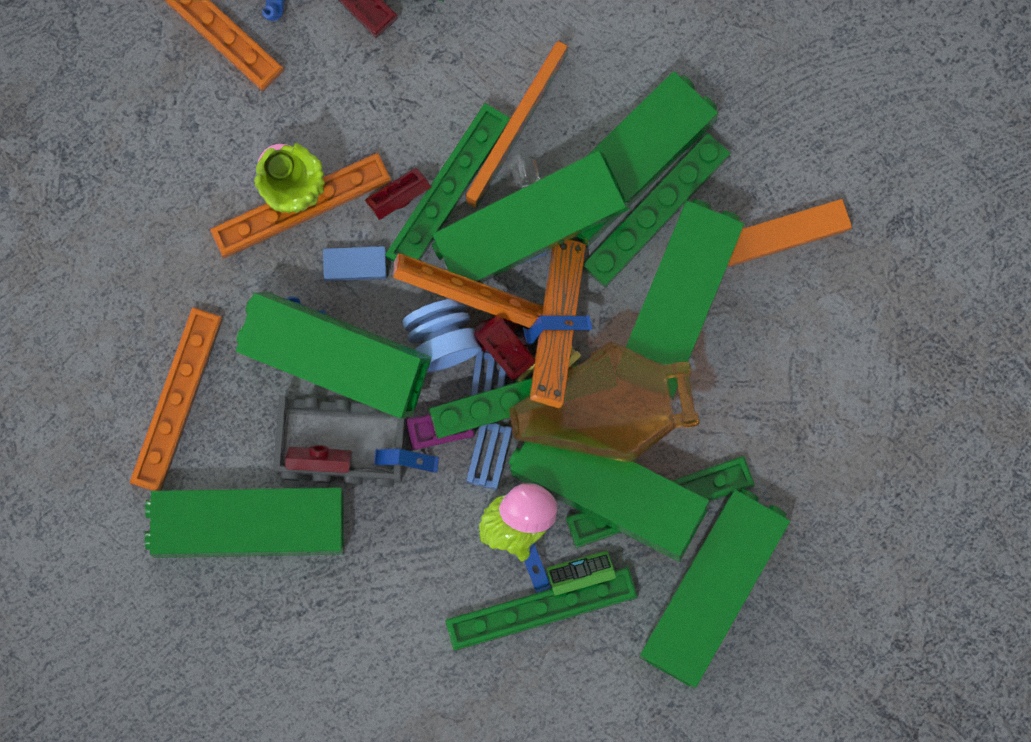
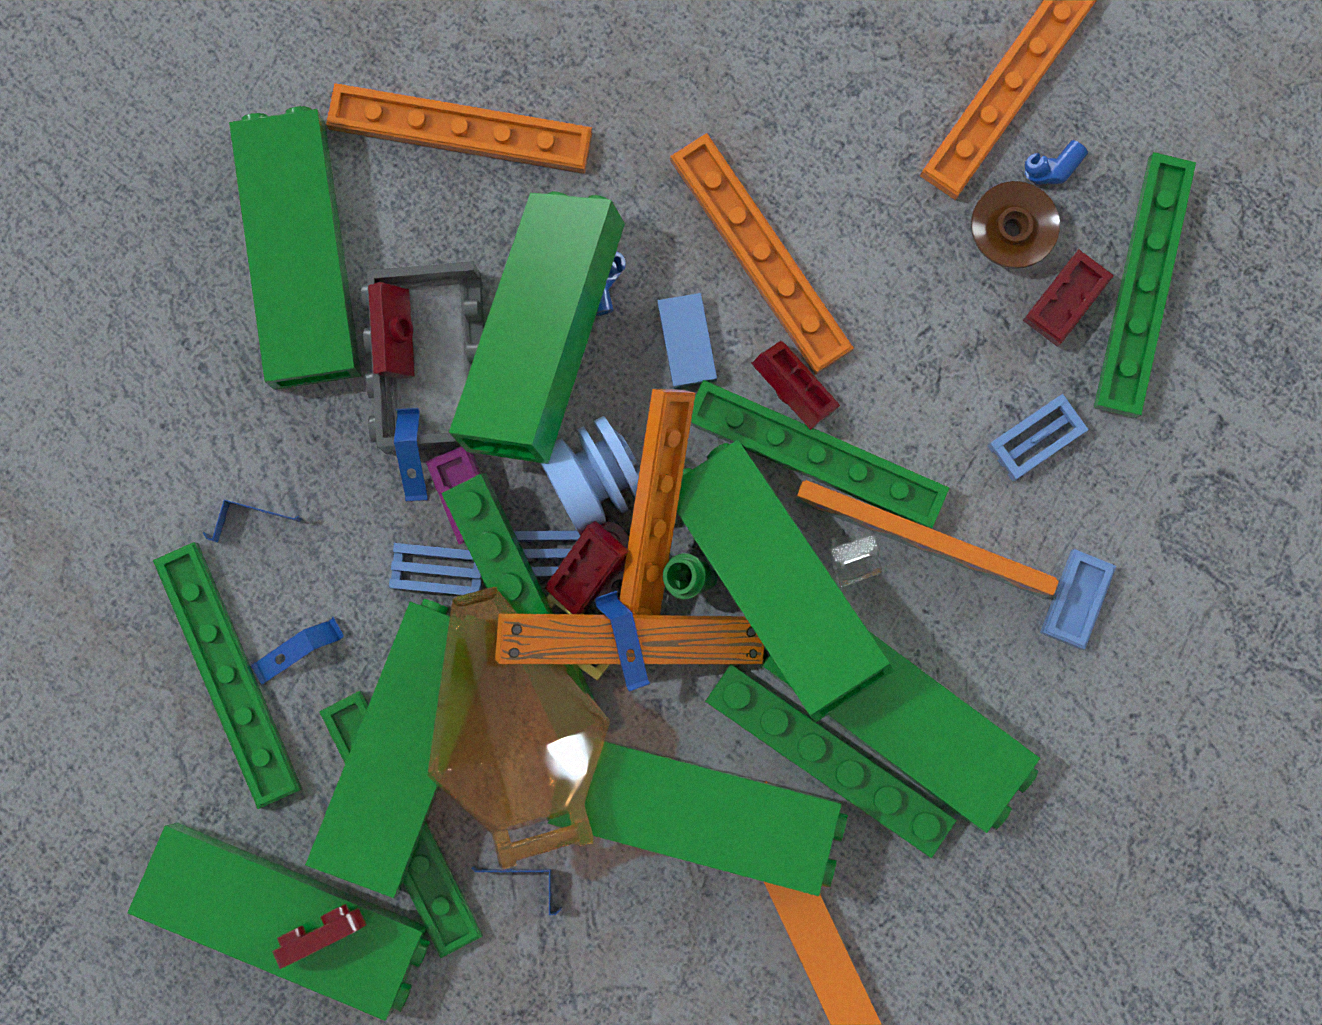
camera: 75 degrees right, 5 degrees up
(289, 177) = (788, 223): lime hair -> none
(306, 19) = (1029, 210): none -> reddish brown dish
(425, 580) = (221, 519): none -> blue piece
(468, 63) = (1007, 458): none -> medium blue tile
(518, 519) = (334, 623): hair -> none
(519, 288) = (688, 576): none -> green cone
(571, 31) = (1078, 599): none -> medium blue tile
(581, 573) = (280, 723): tile -> none
(714, 406) = (524, 870): none -> blue piece
(731, 567) = (299, 944): none -> dark red plate

